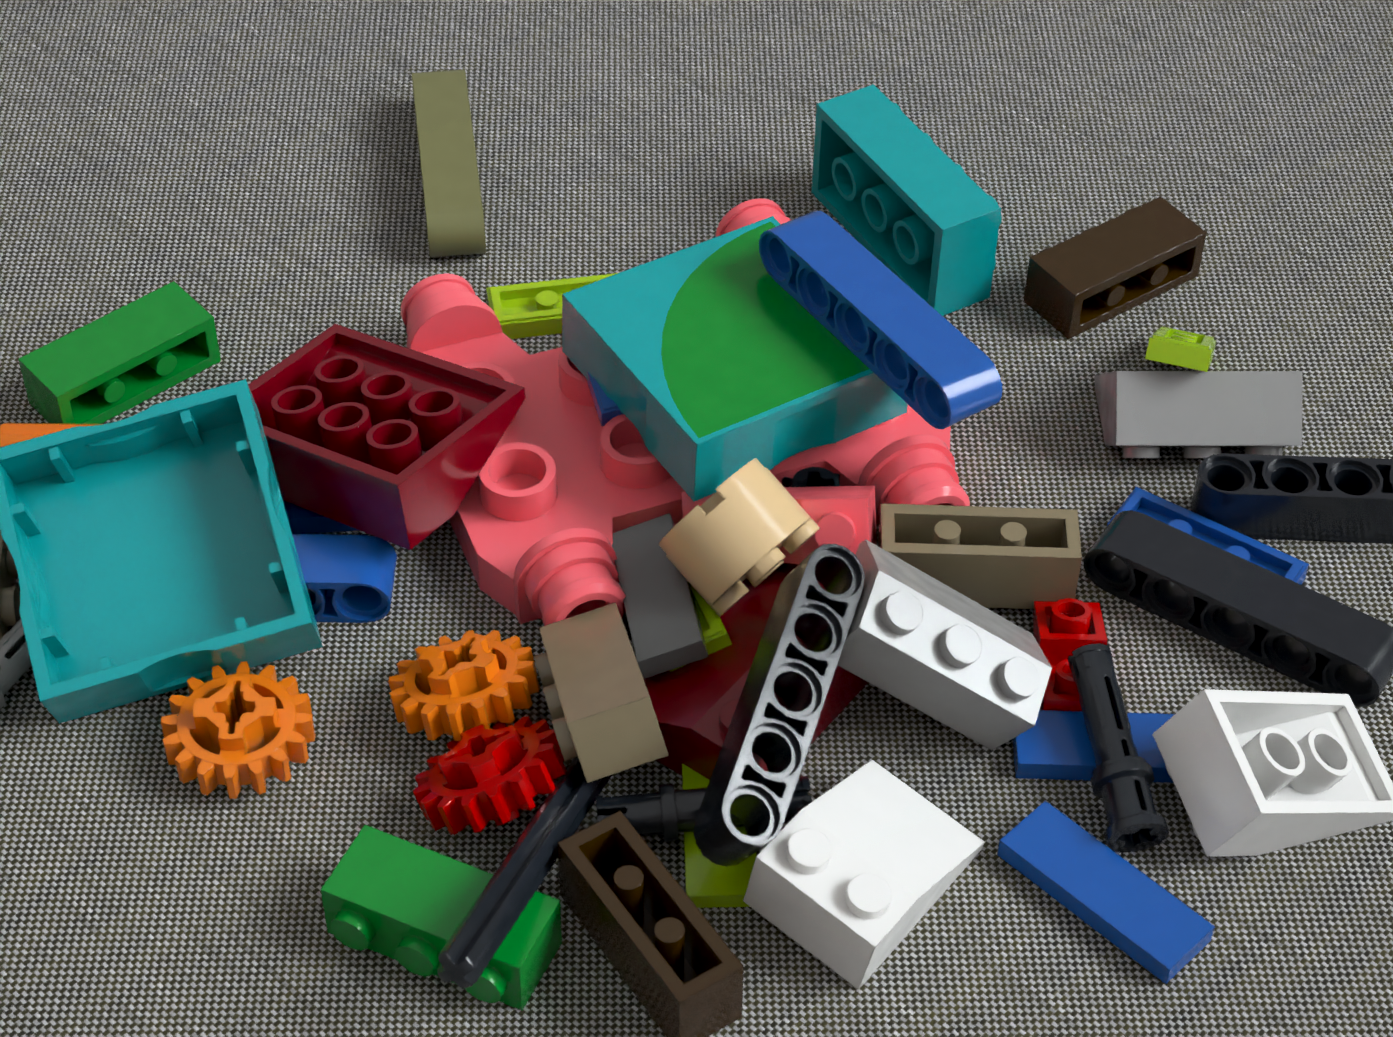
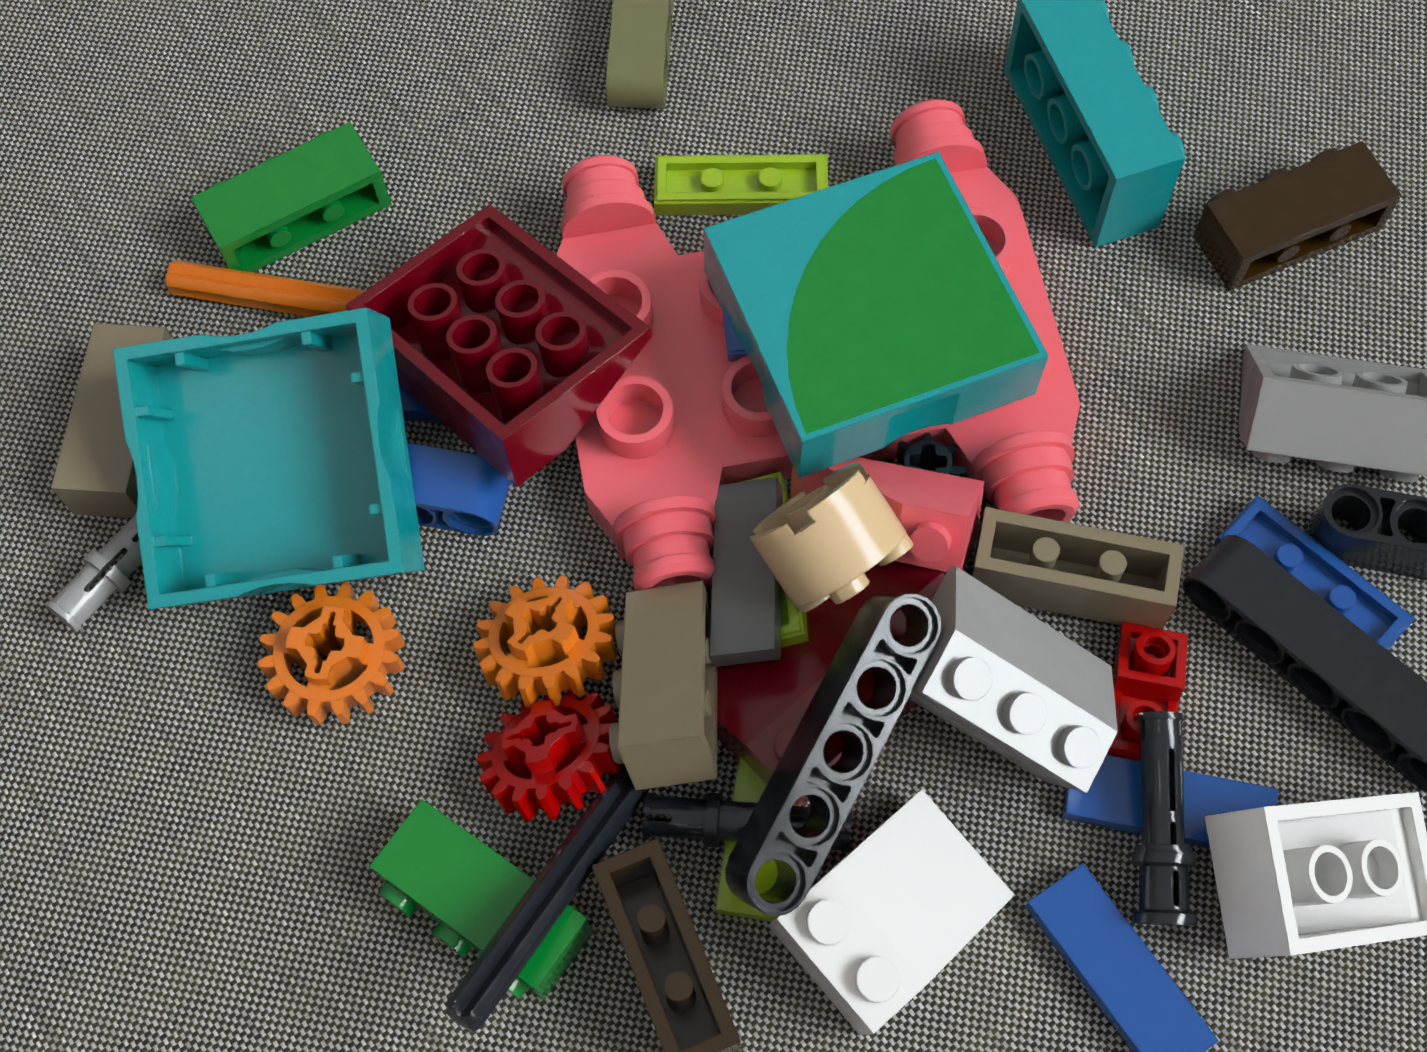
camera: 15 degrees right, 20 degrees up
(880, 319) = (1020, 316): blue beam -> none
(1181, 348) = (1340, 347): lime tile -> none

